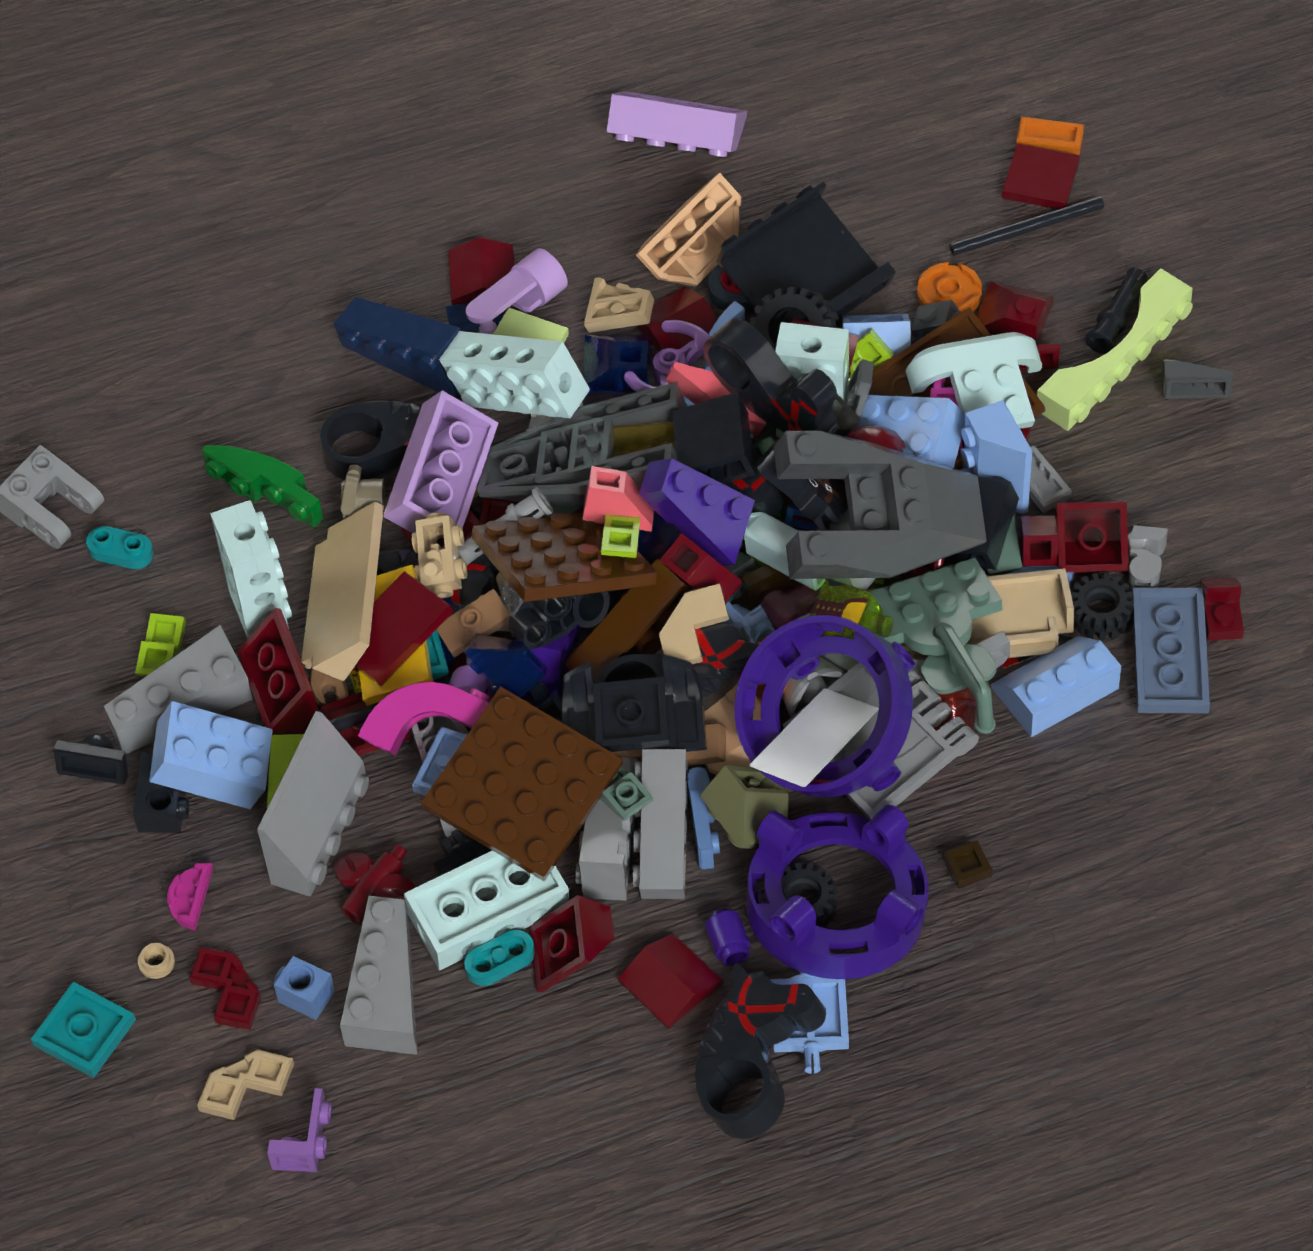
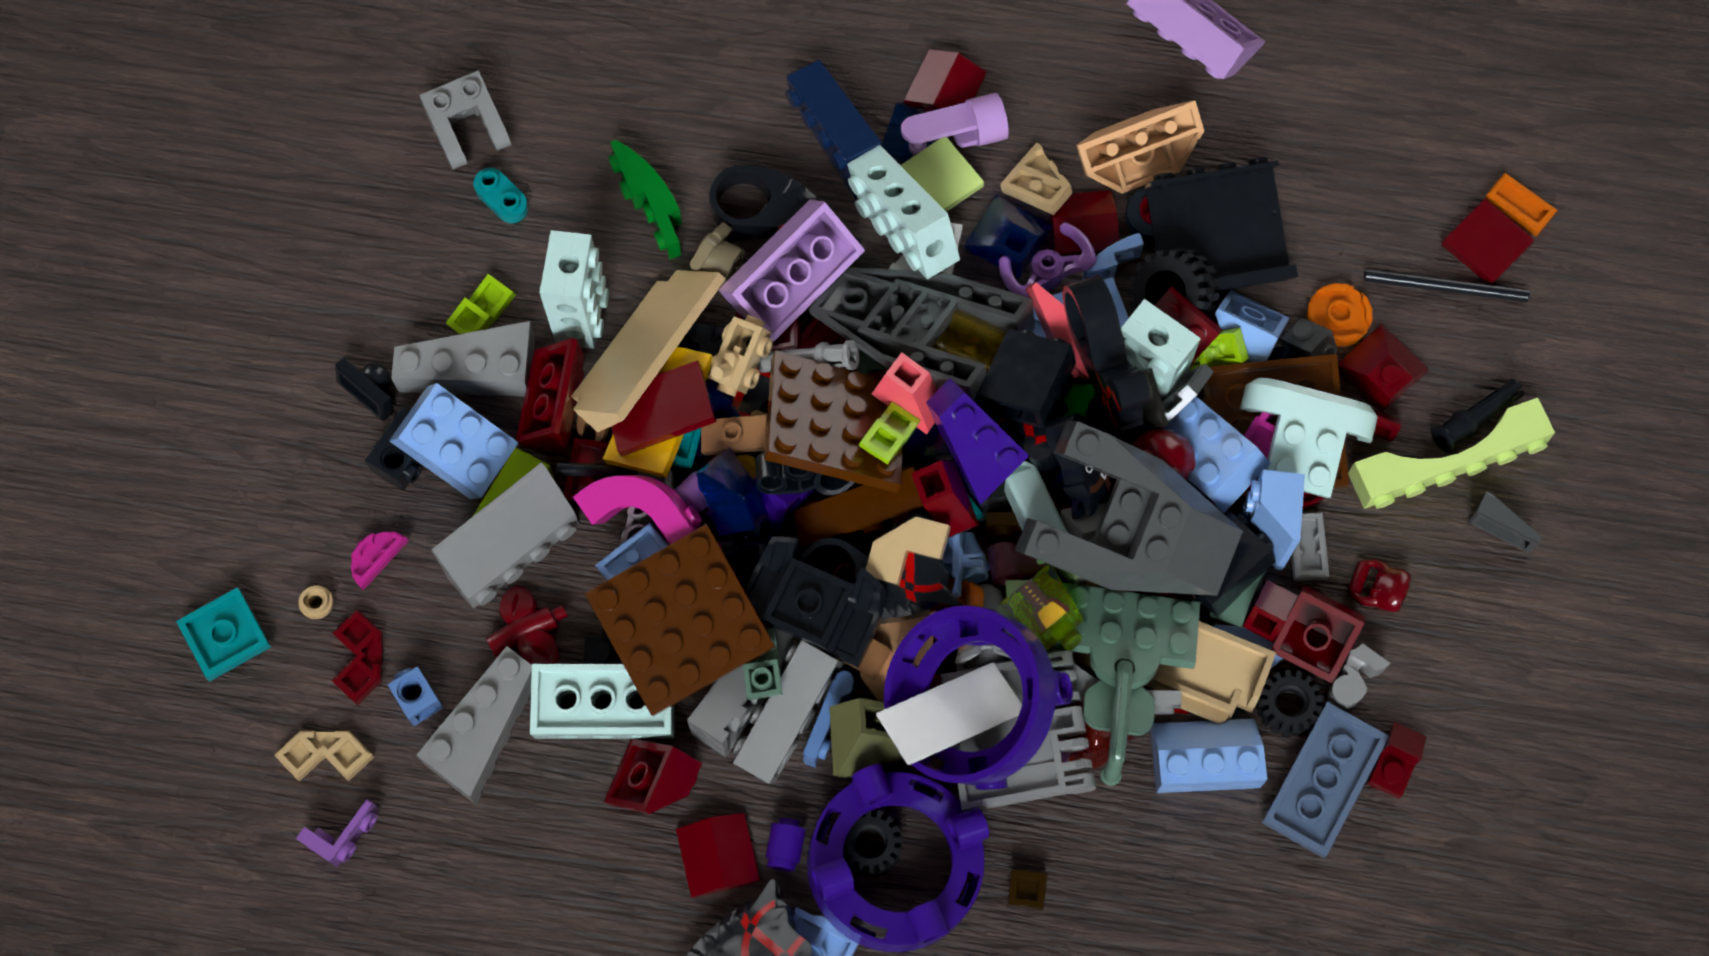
camera: 25 degrees right, 15 degrees up
(497, 956) = (589, 754): teal plate -> none
(1128, 478) = (1387, 590): none -> dark red piece

